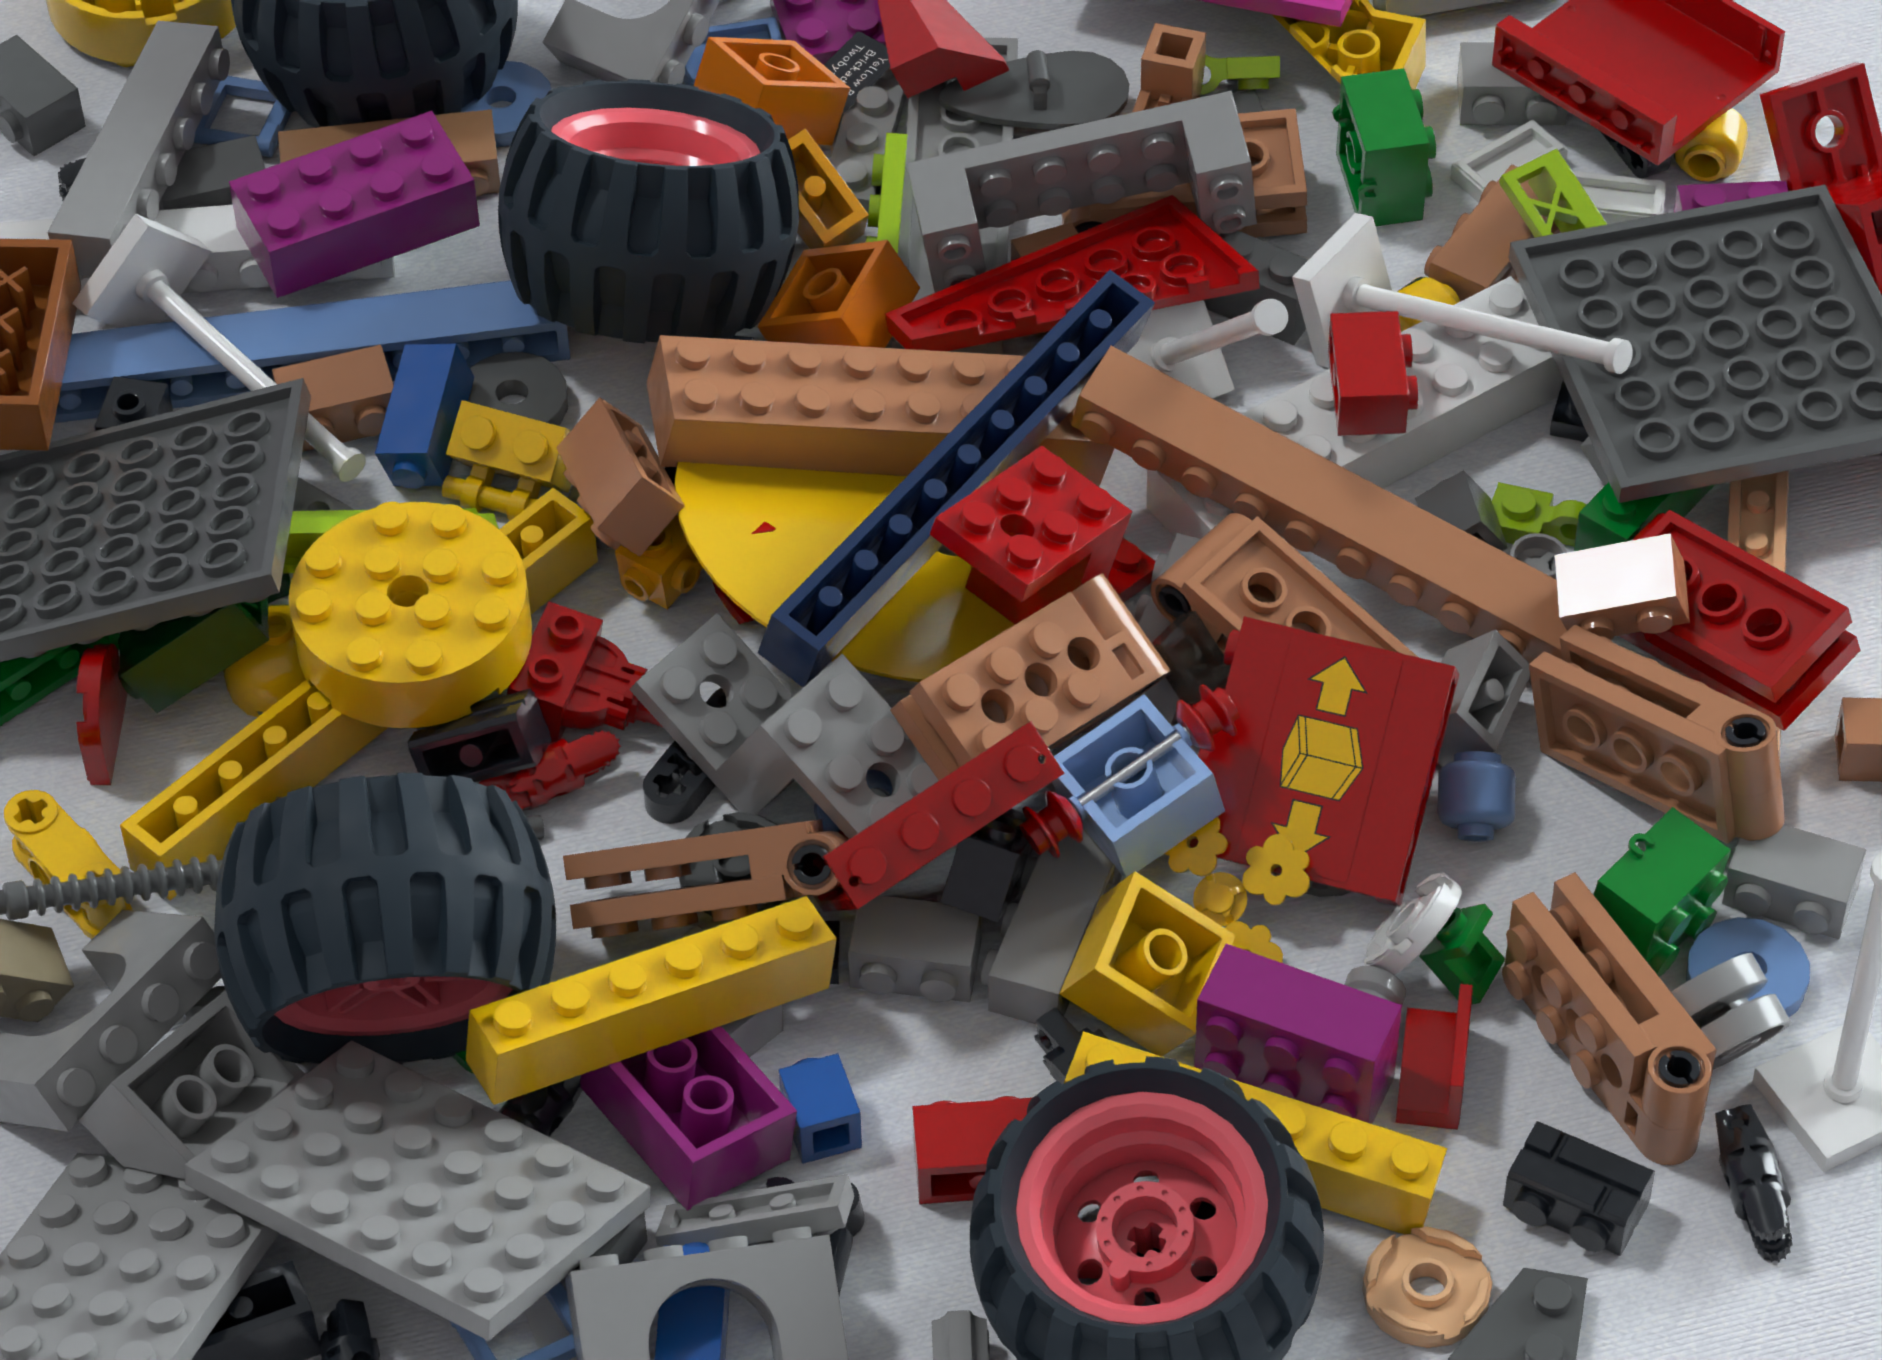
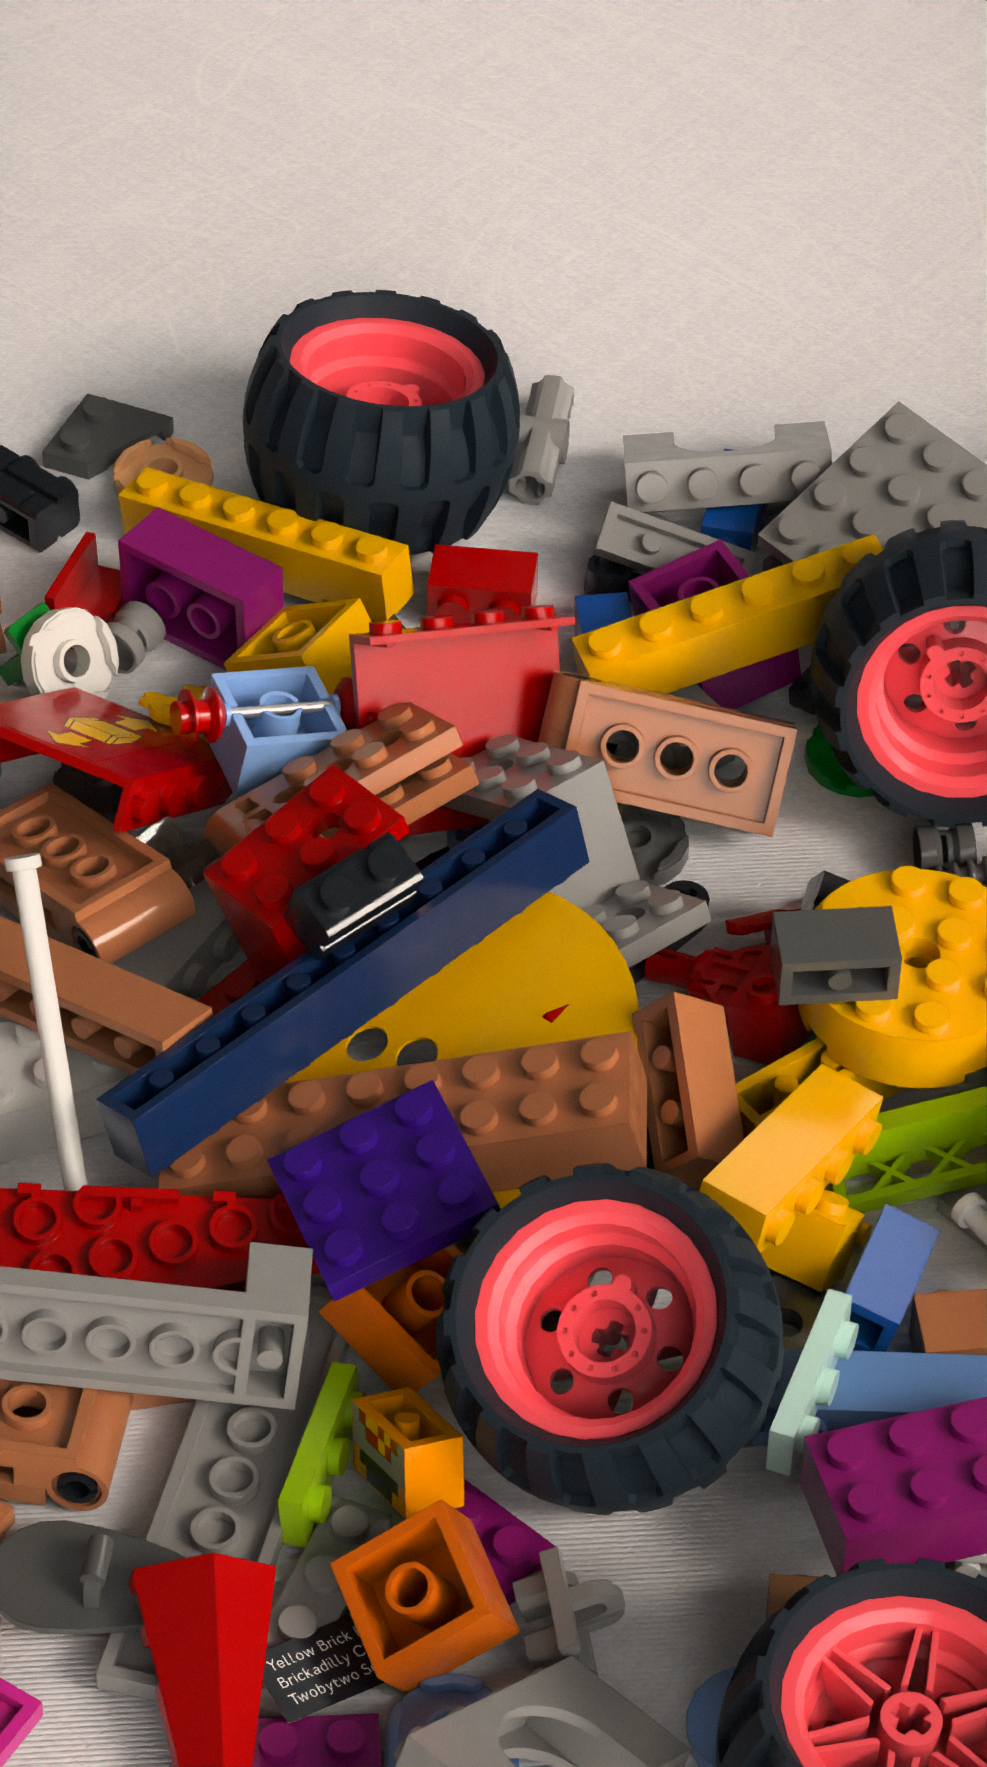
camera: 170 degrees left, 5 degrees down
(473, 275) = (812, 1381): none -> light aqua plate
(487, 516) = (835, 955): none -> dark grey brick
(516, 408) = (795, 1155): none -> yellow brick
(874, 294) = (383, 1189): none -> dark purple plate
(964, 447) = (353, 896): none -> black brick

